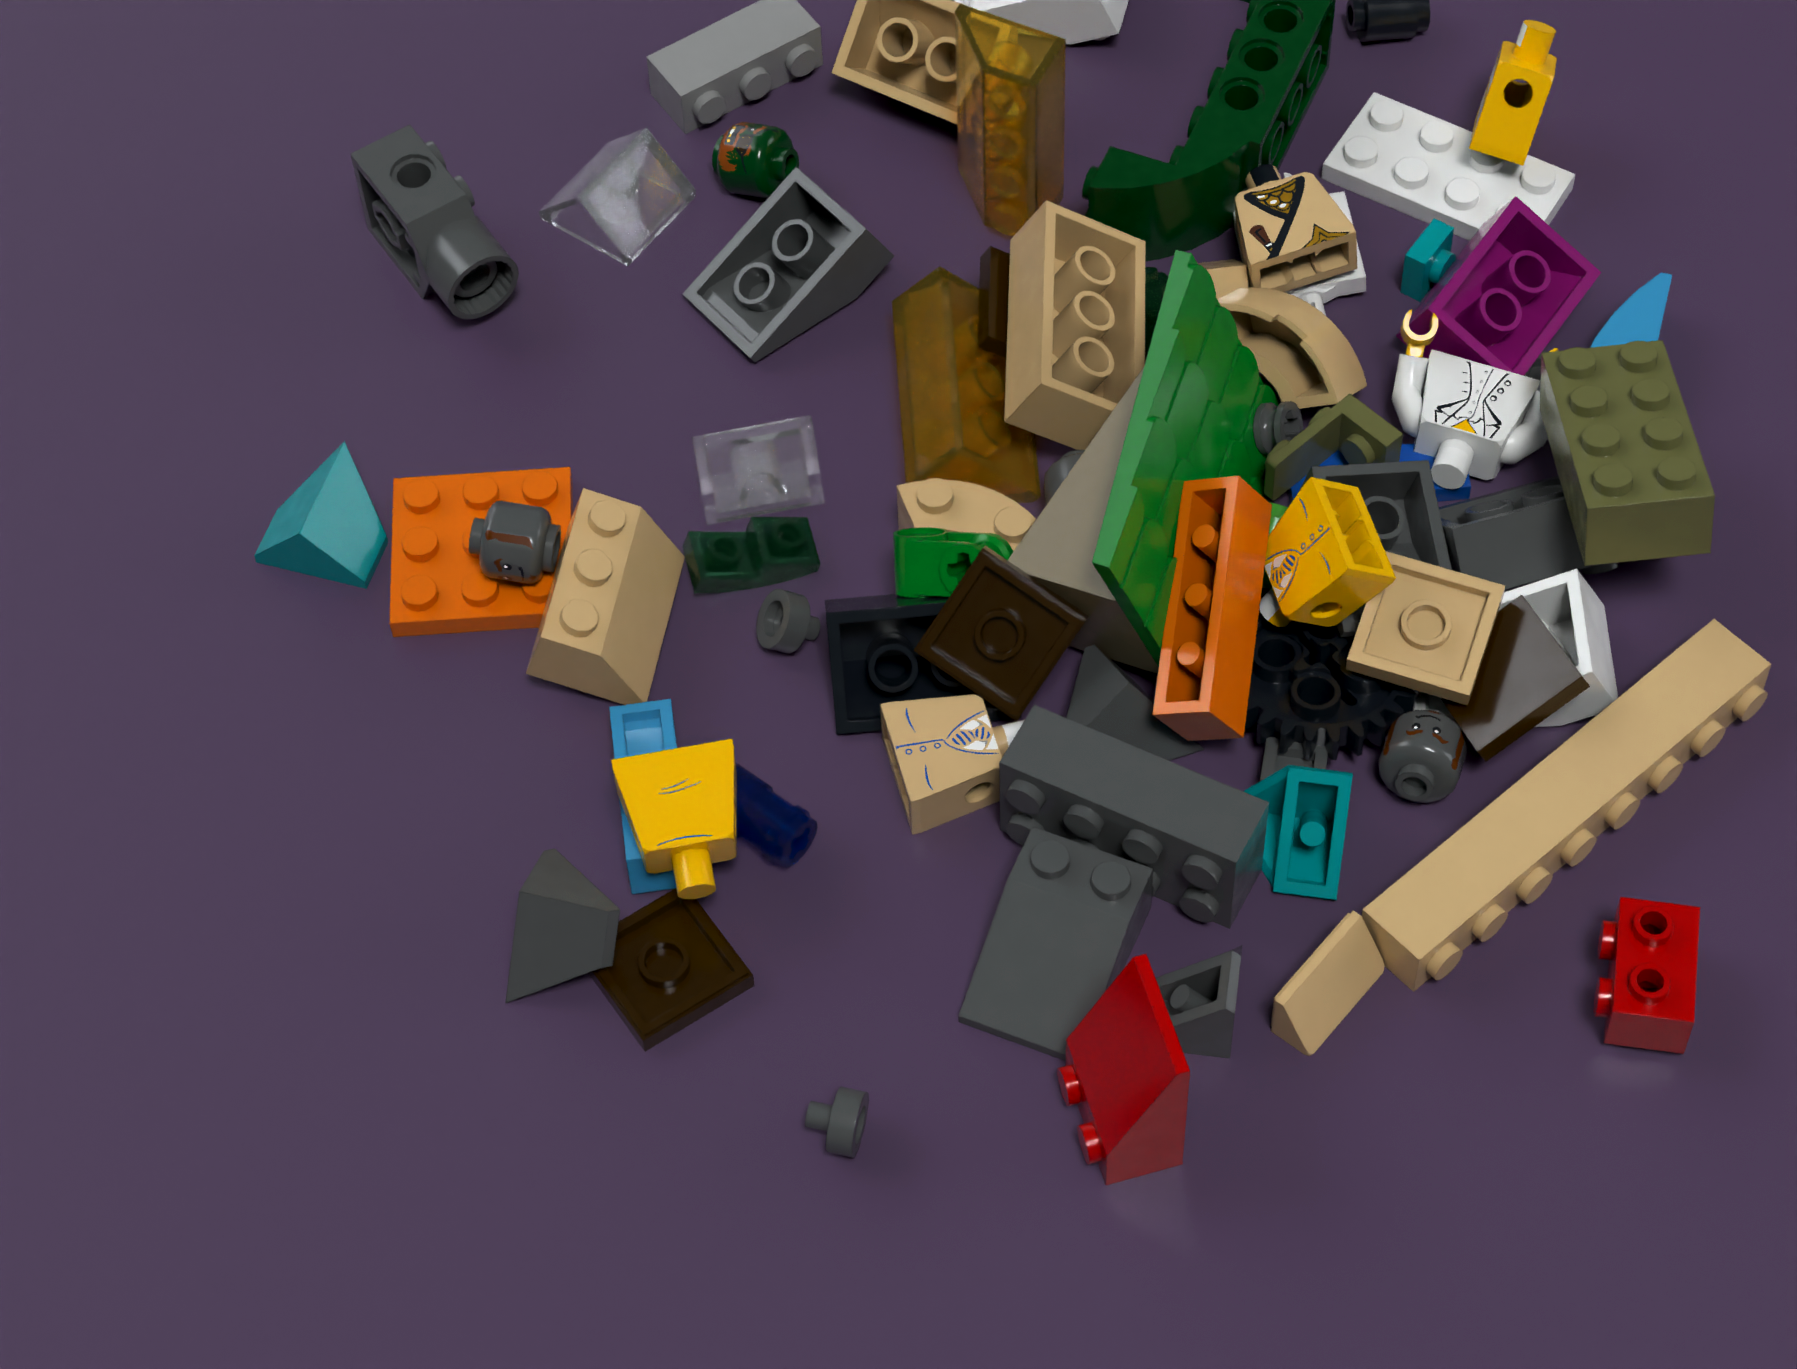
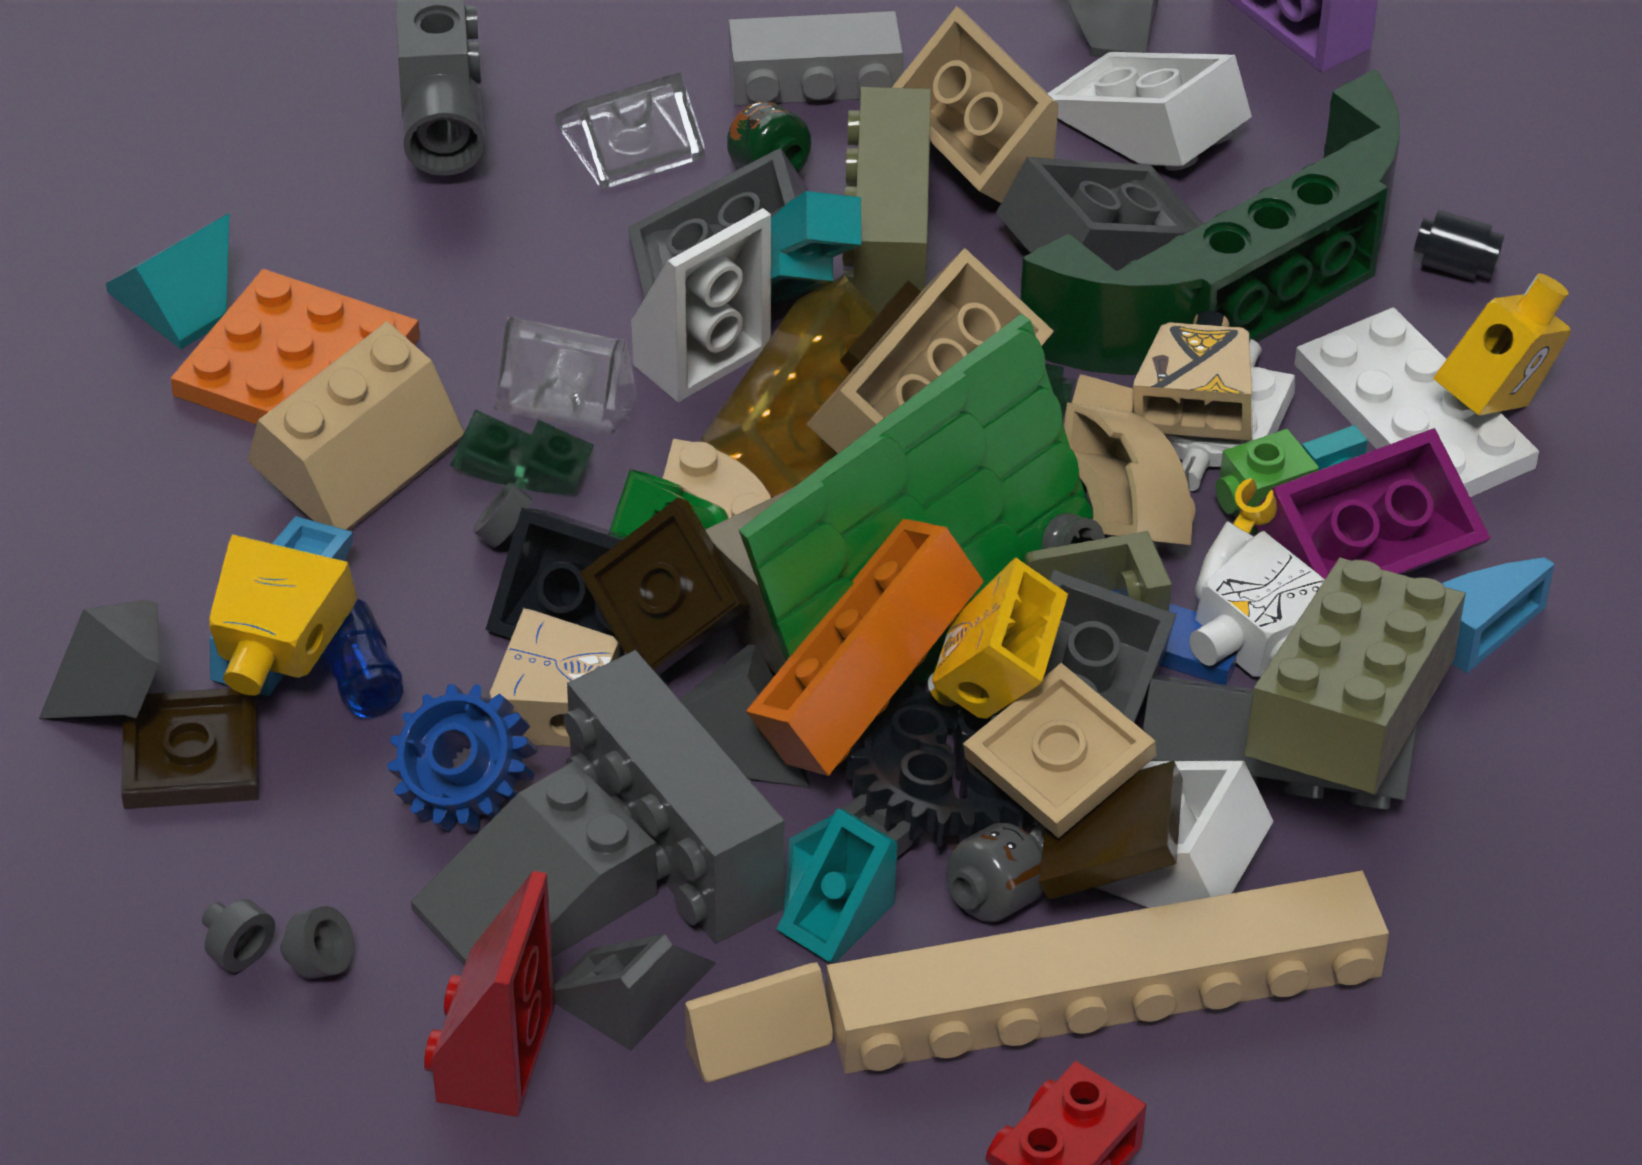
camera: 25 degrees right, 10 degrees down
(515, 542) = (305, 343): dark grey head -> none
(835, 351) = (707, 310): none -> white slope
(887, 258) = (807, 238): none -> teal slope
(913, 173) = (892, 180): none -> olive brick
(916, 831) = (441, 731): none -> blue gear
(916, 1096) = (318, 942): none -> dark grey tile
(1009, 116) = (996, 166): clear yellow slope -> none
(1107, 107) = (1106, 206): none -> dark grey slope
(1384, 295) = (1268, 461): none -> bright green brick

